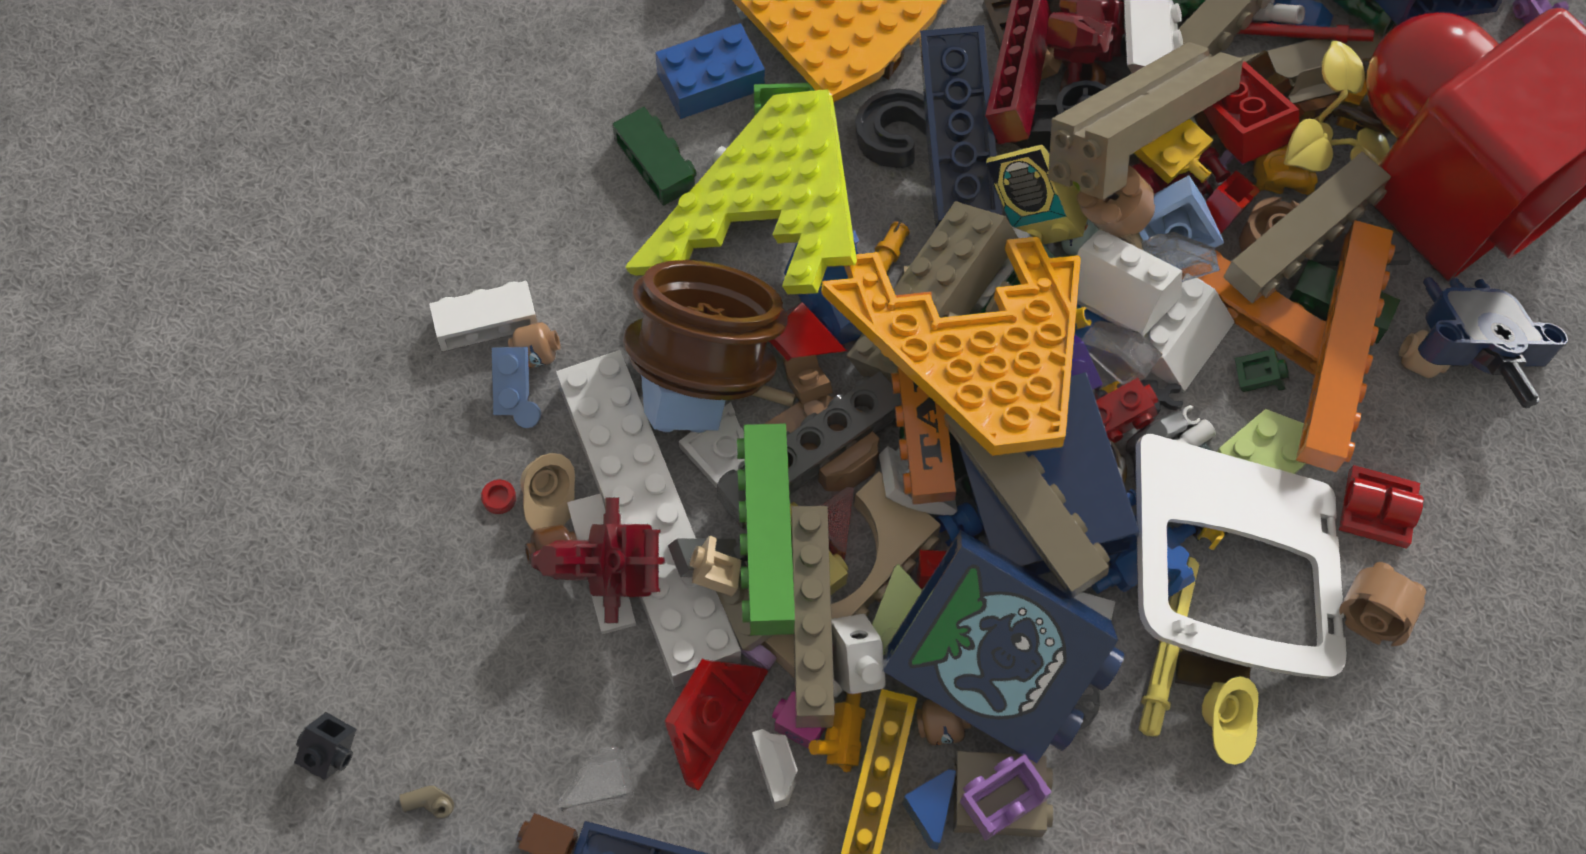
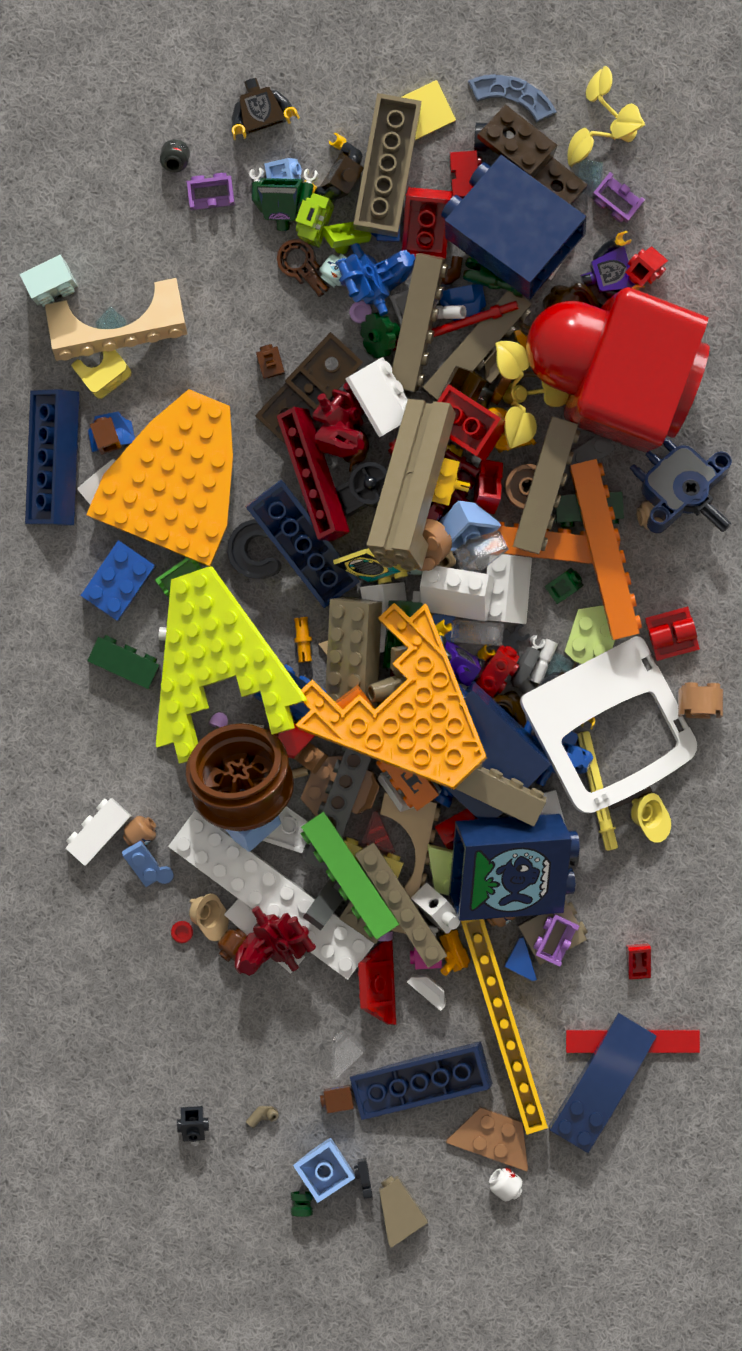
camera: 30 degrees left, 25 degrees up
(714, 568) = (337, 916): tan bracket -> none

